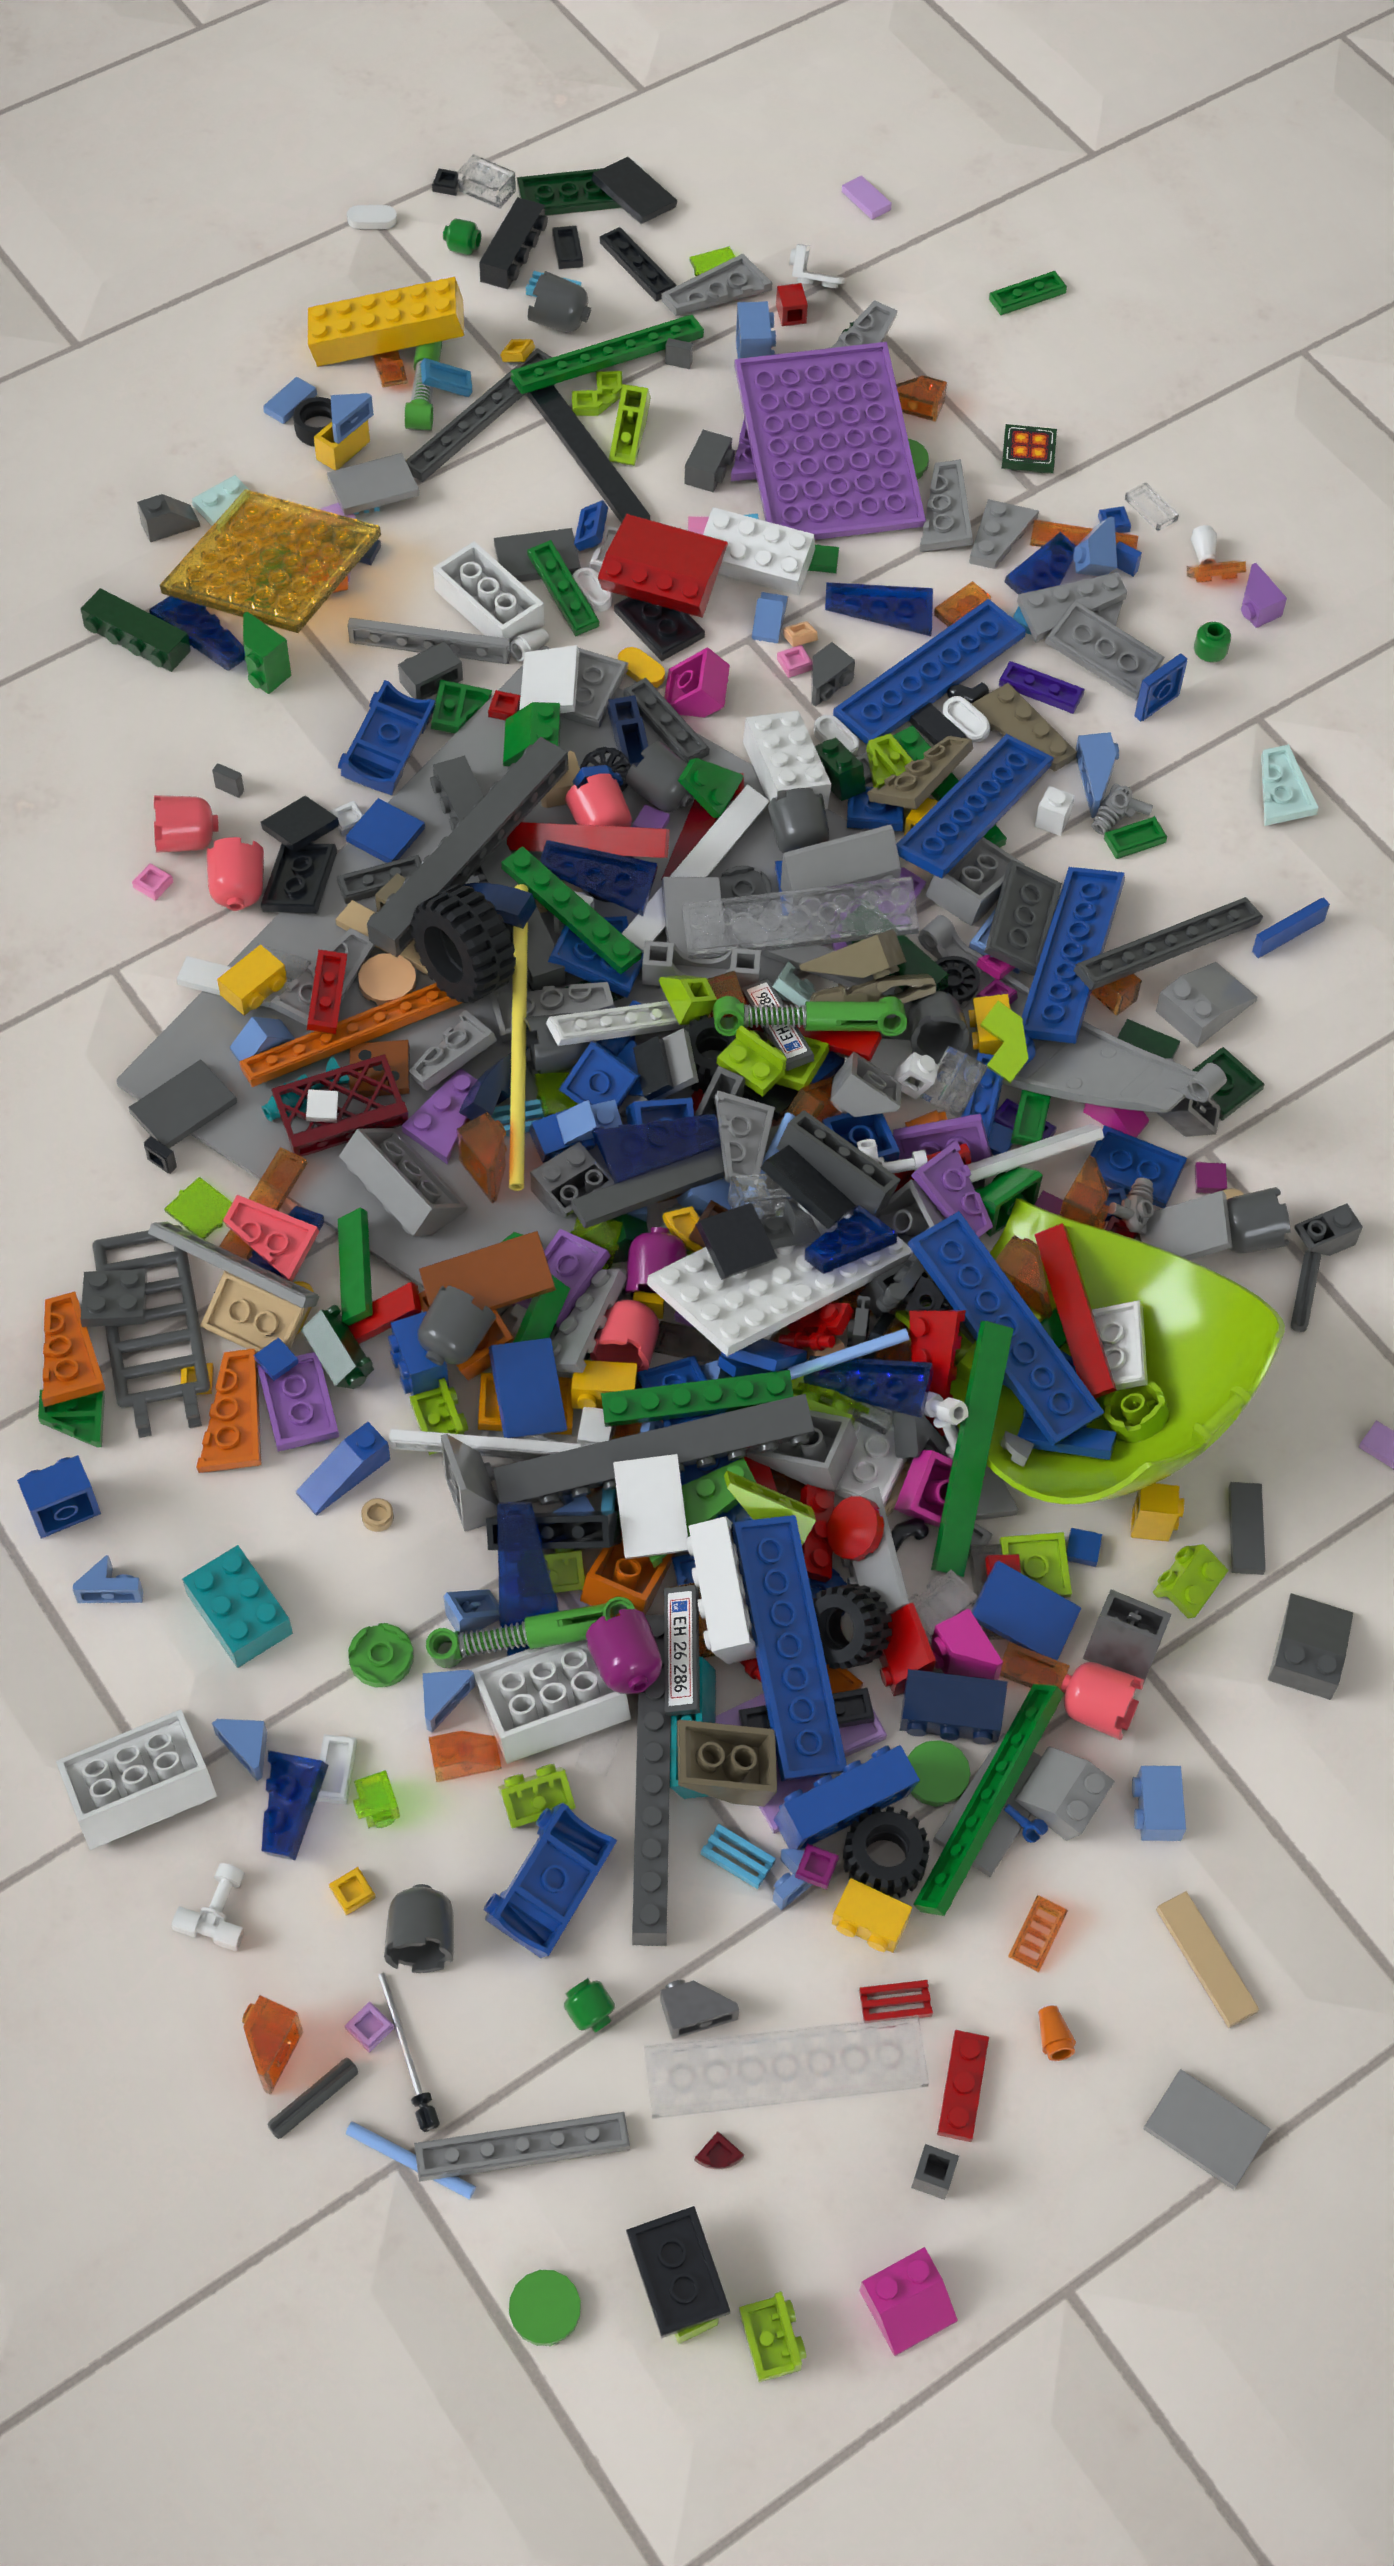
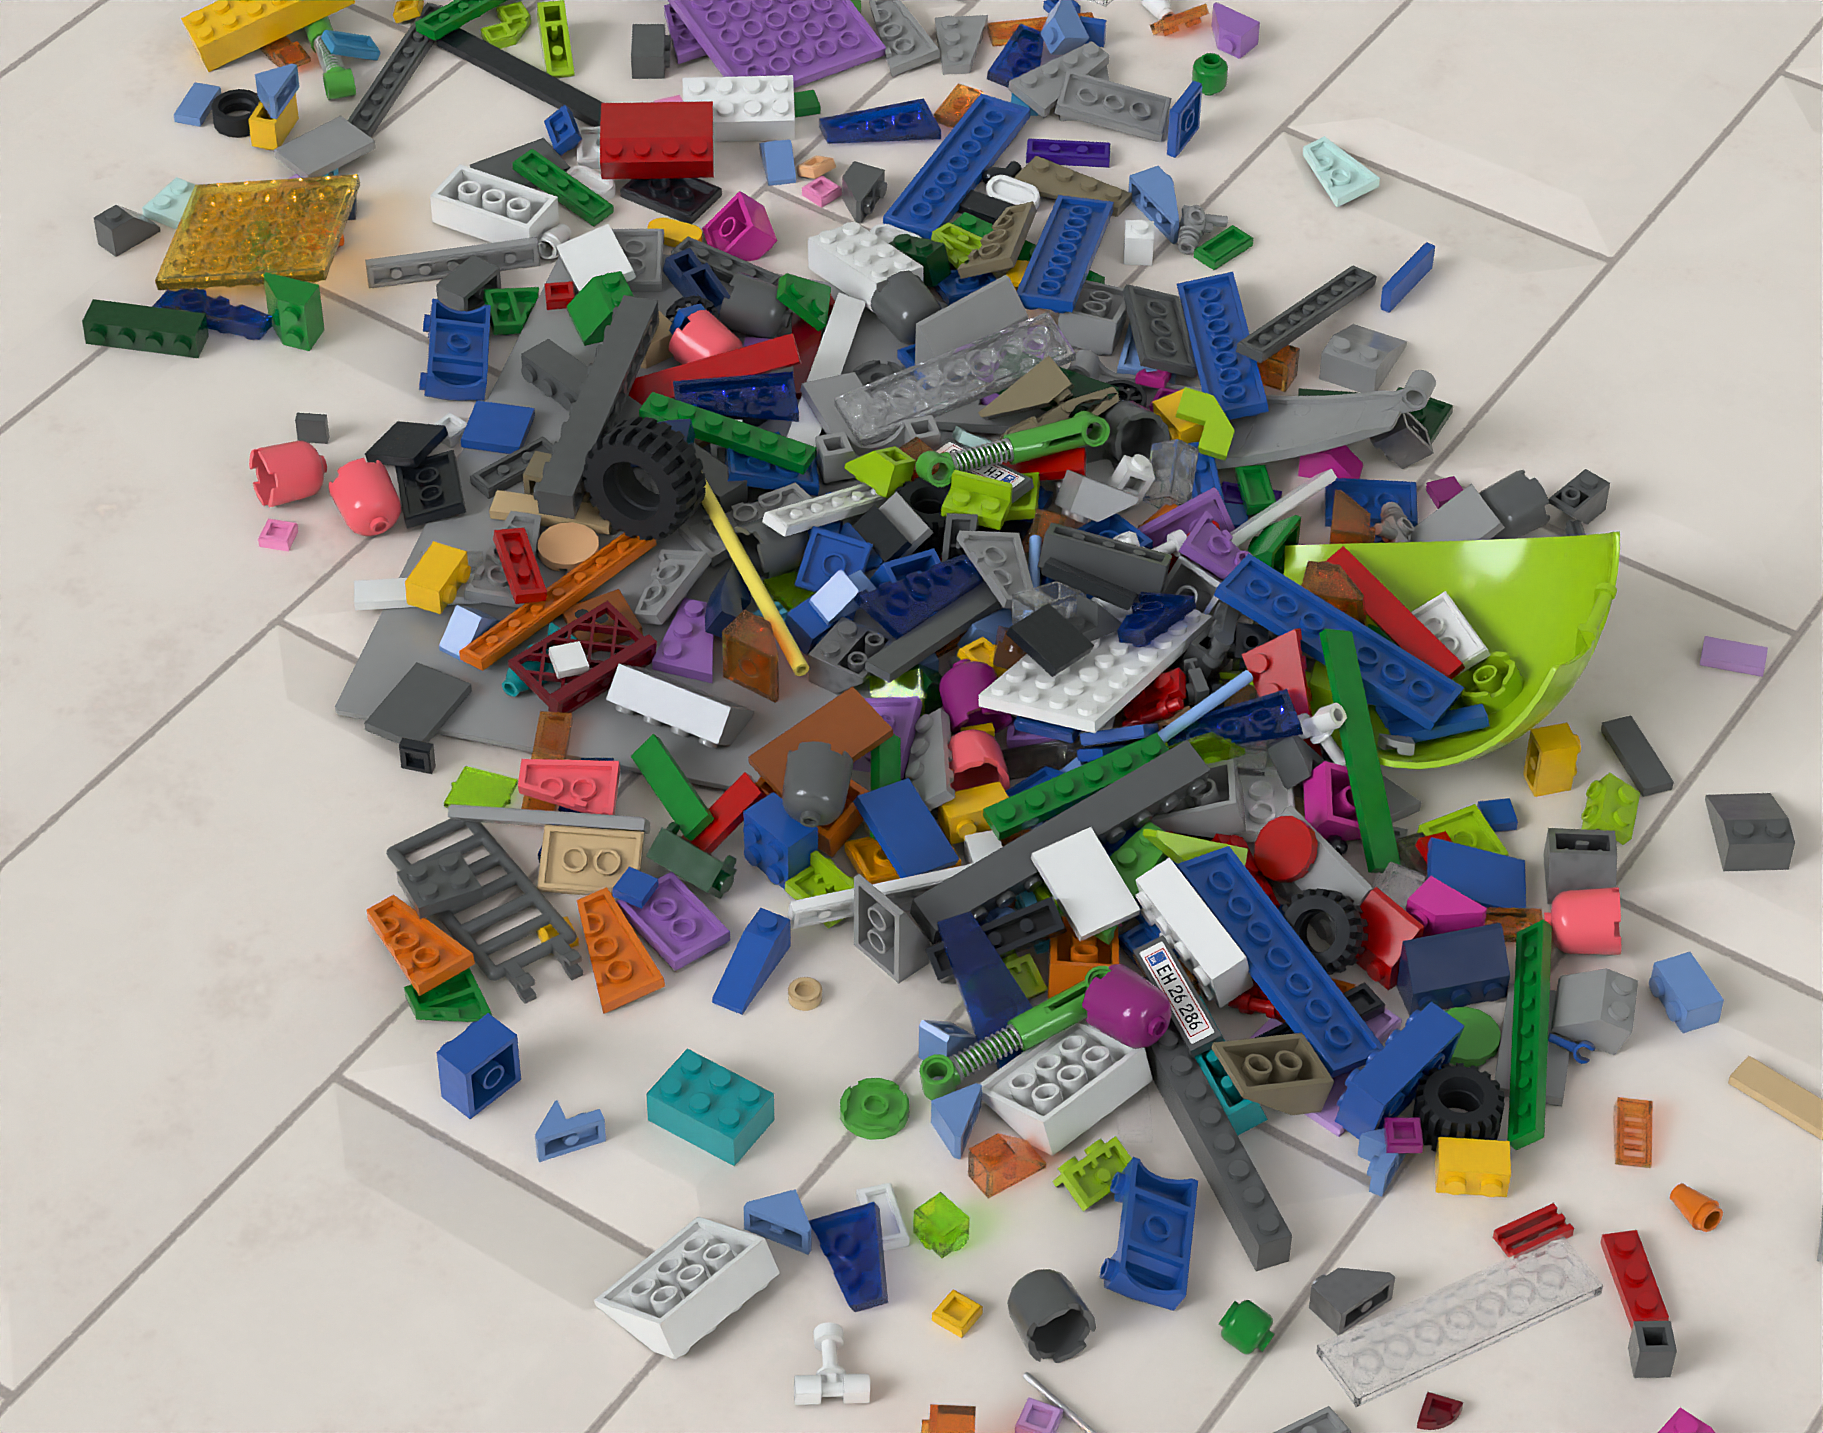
camera: 20 degrees left, 15 degrees down
(767, 1859) = (1317, 1158): medium azure tile -> none

